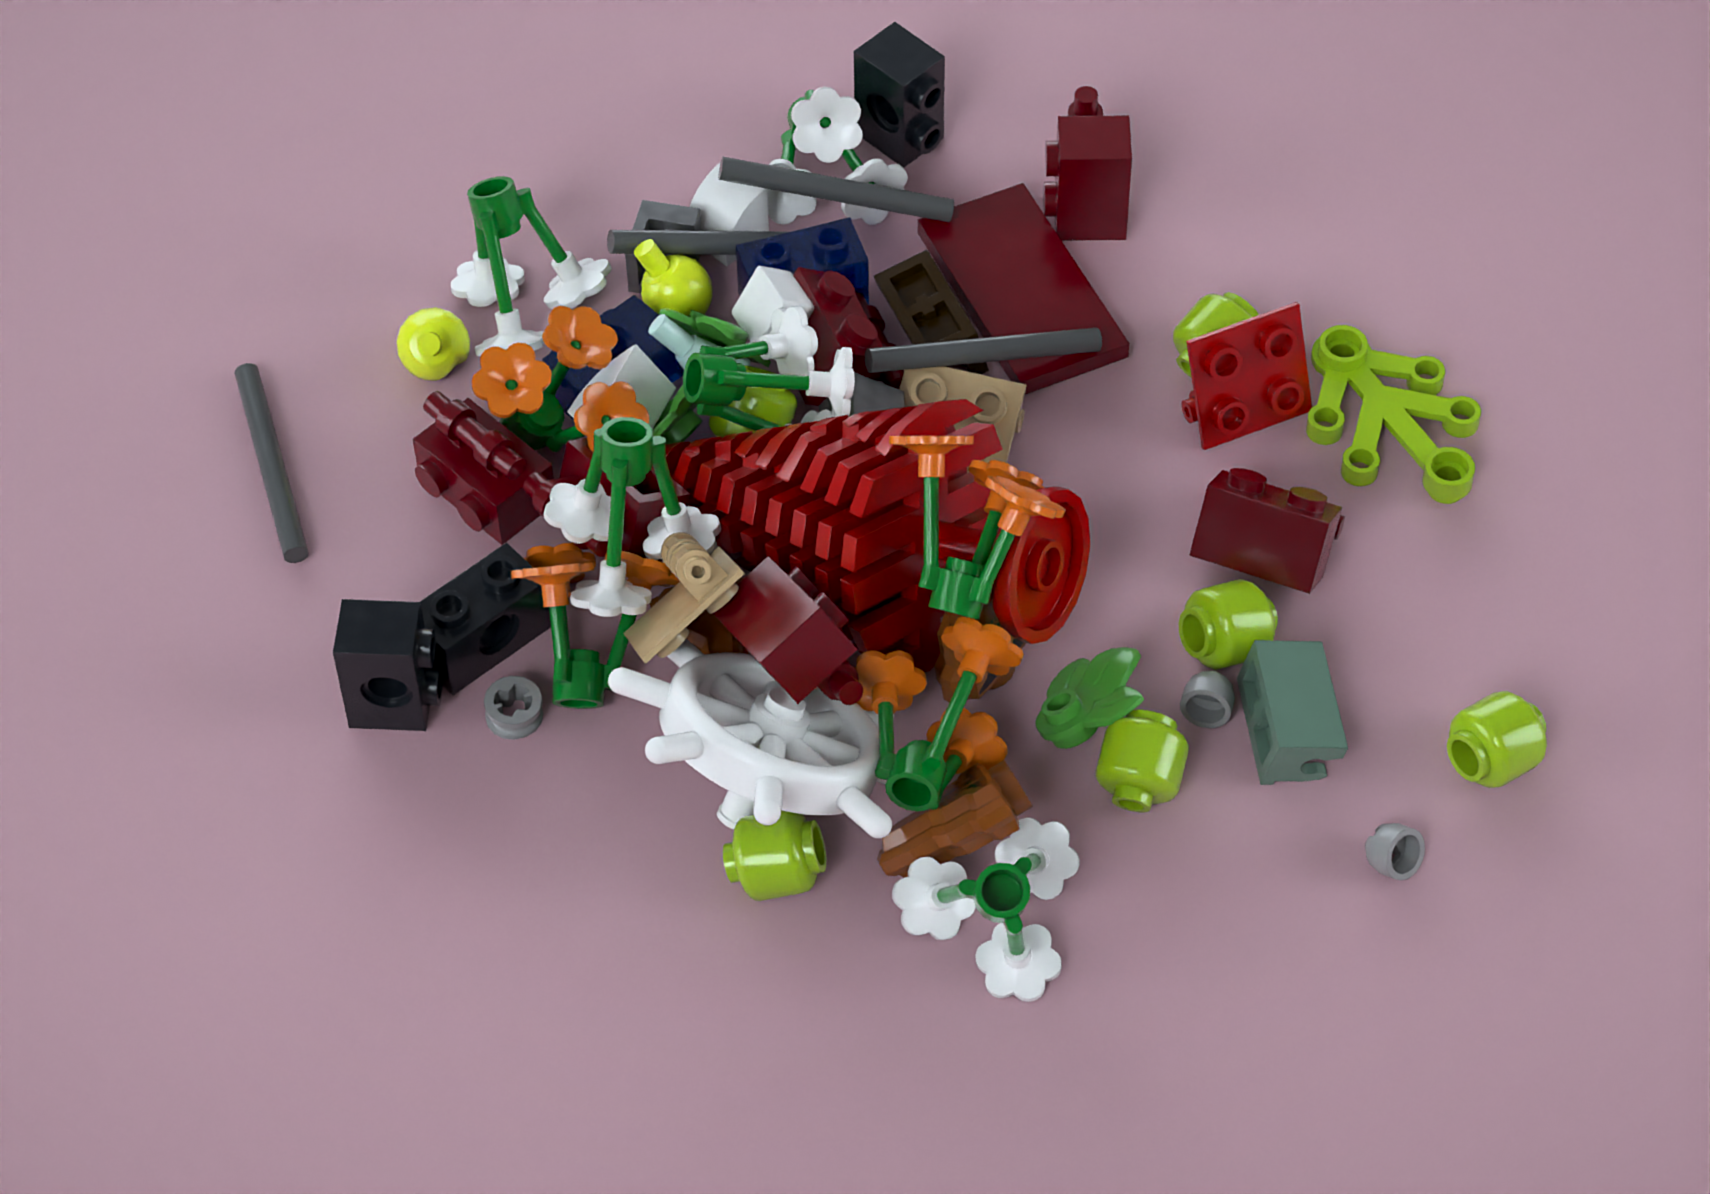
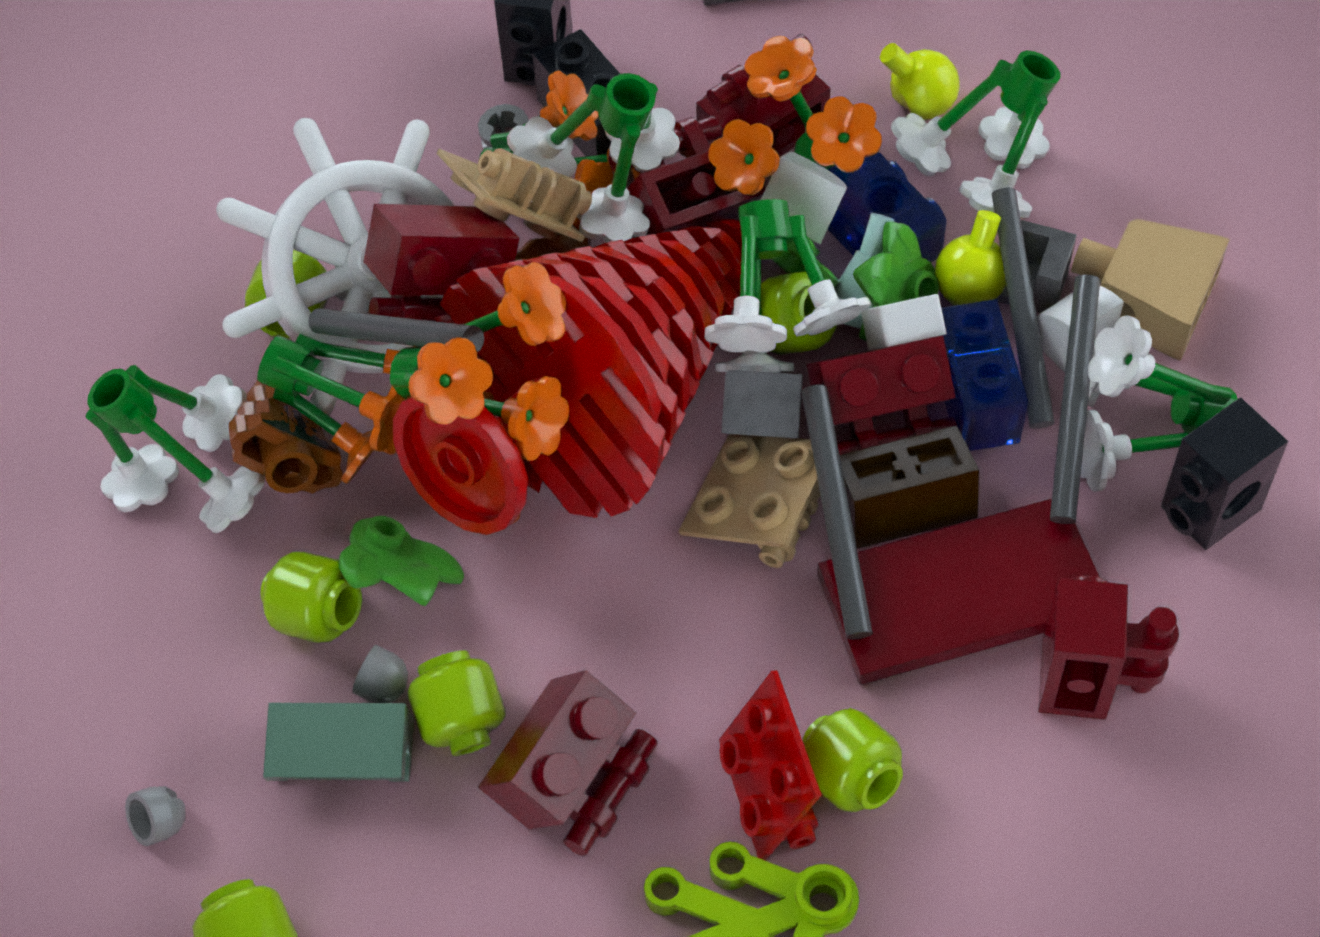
camera: 100 degrees right, 5 degrees up
(672, 151) = (1160, 276): none -> tan torso
(913, 624) = (390, 329): none -> dark grey bar

